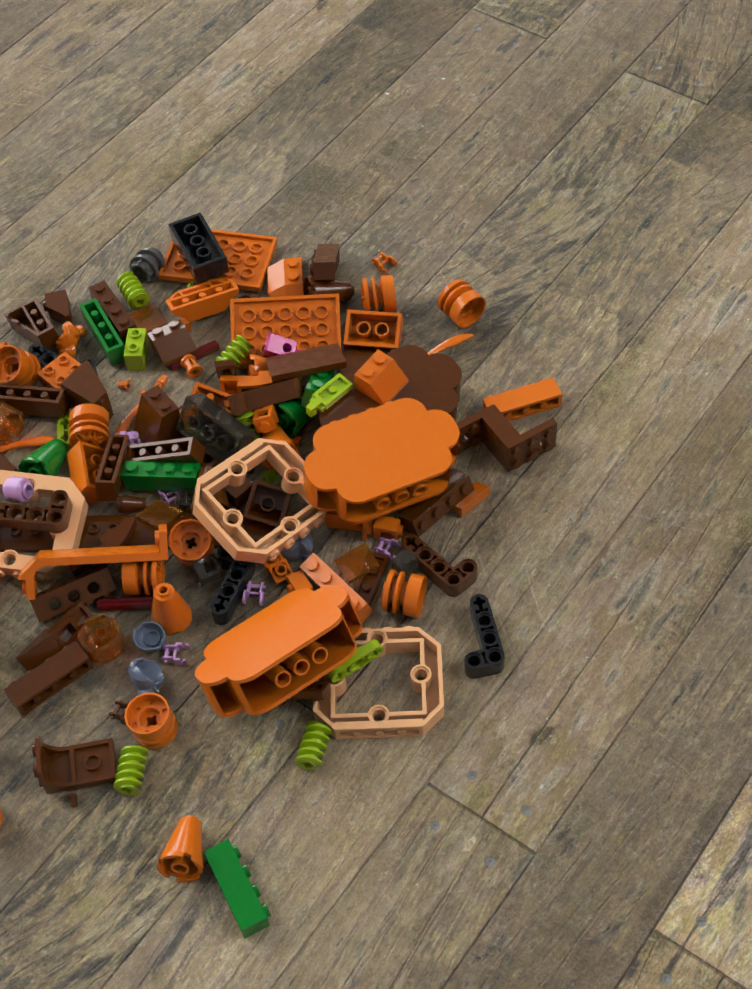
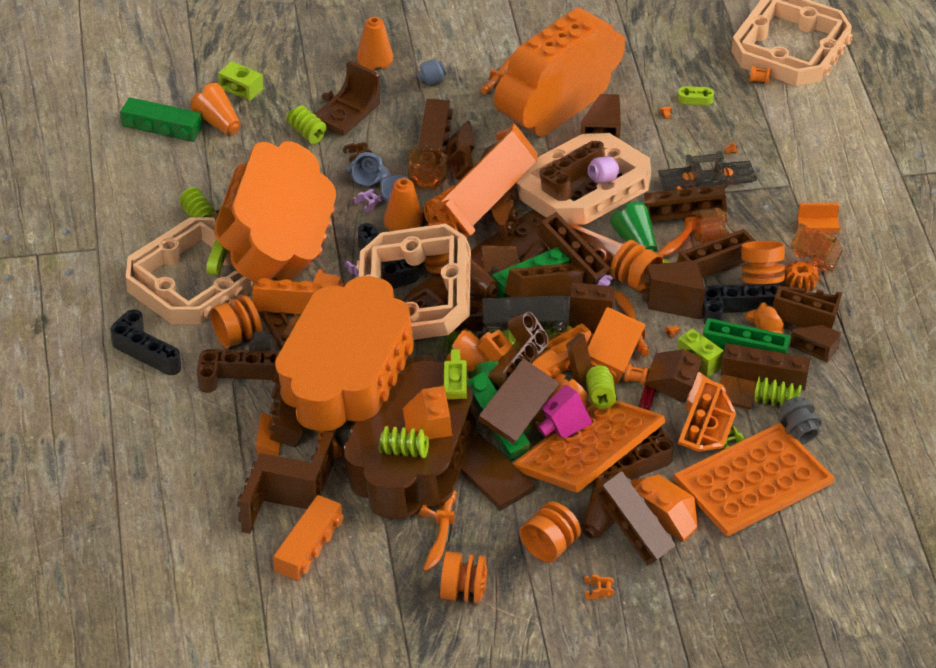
camera: 130 degrees right, 10 degrees down
(57, 371) = (723, 287): orange bracket -> none
(125, 892) = (240, 80): none -> lime brick
(151, 720) = (327, 143): orange wheel -> none
(180, 377) = (615, 342): none -> orange slope
(198, 248) = (768, 450): black brick -> none
(373, 329) = (514, 503): orange slope -> none
(418, 371) = (403, 442): none -> lime piece

